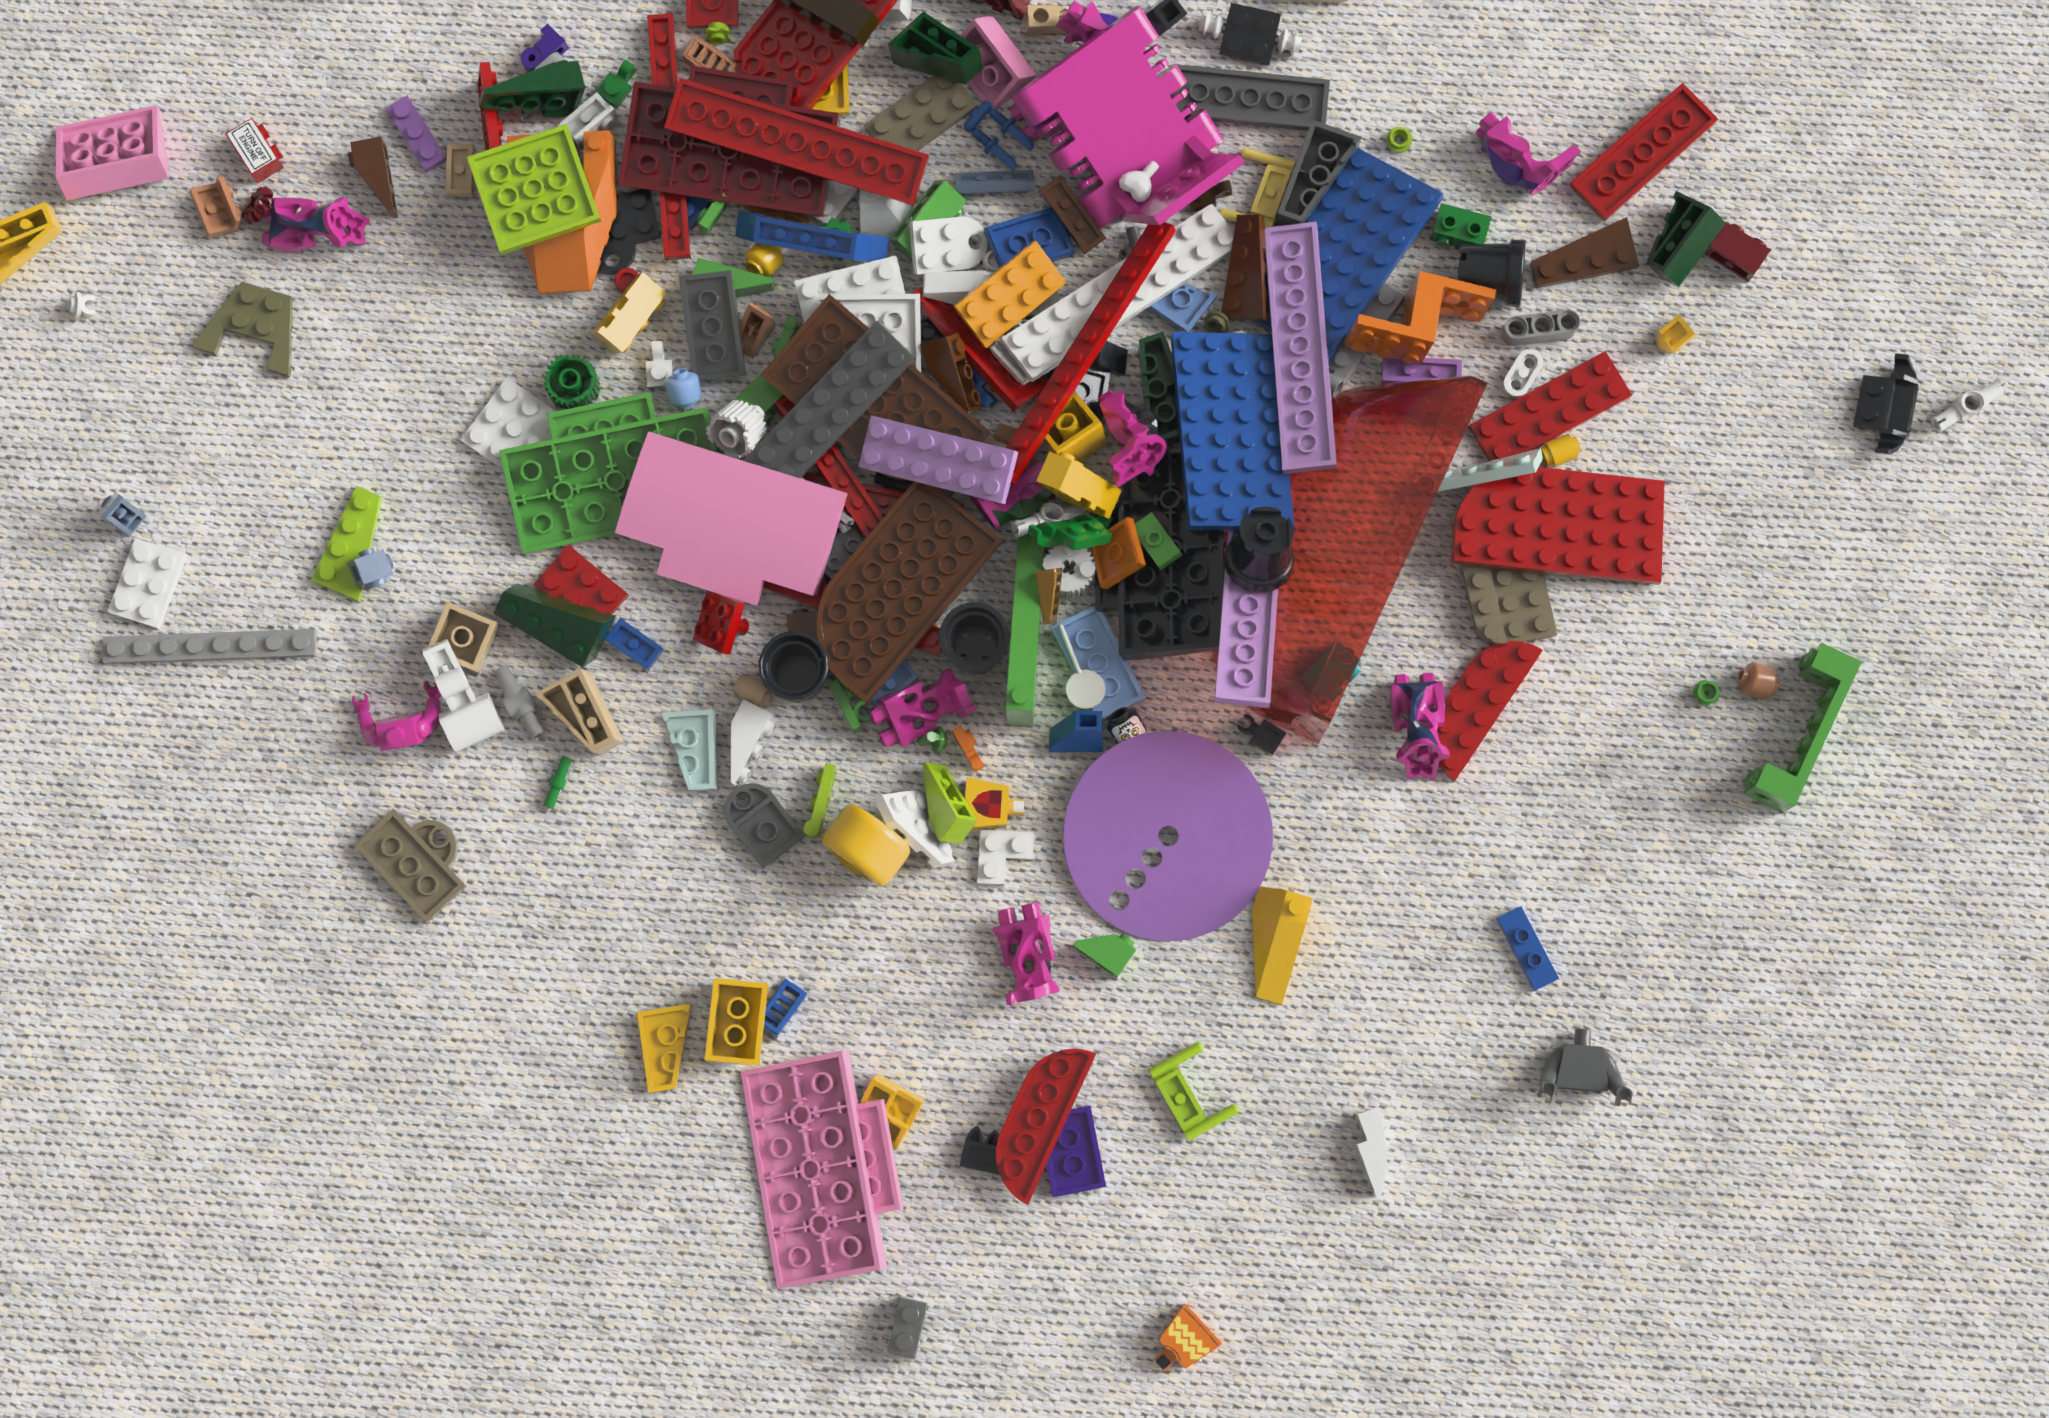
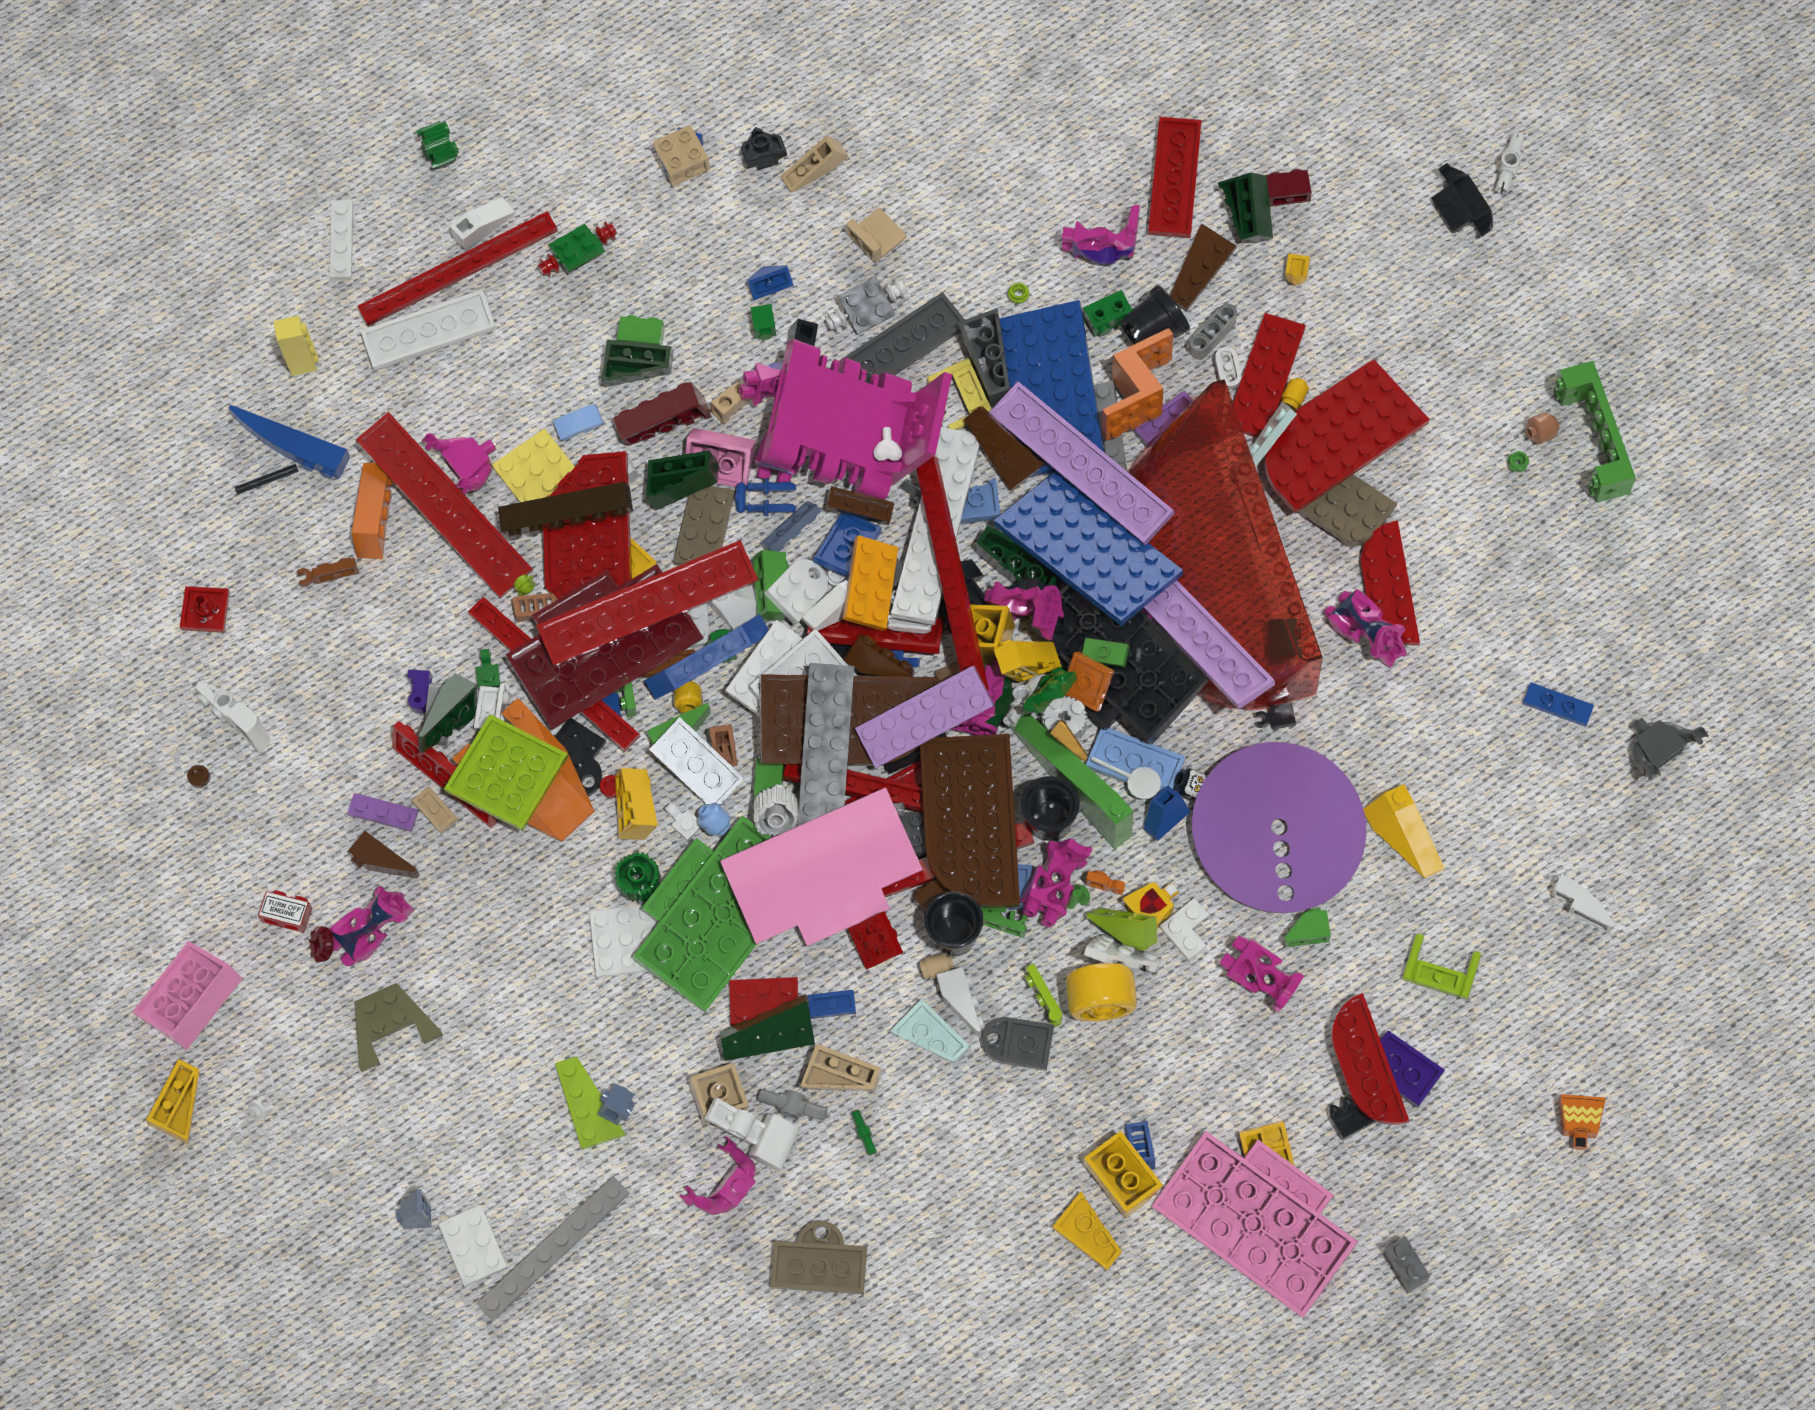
camera: 40 degrees left, 10 degrees down
(216, 208) = (294, 969): nougat bracket -> none
(790, 329) = (751, 740): bright green plate -> none
(1210, 322) = (1011, 500): olive plate -> none
(1261, 551) = (1179, 597): black piece -> none

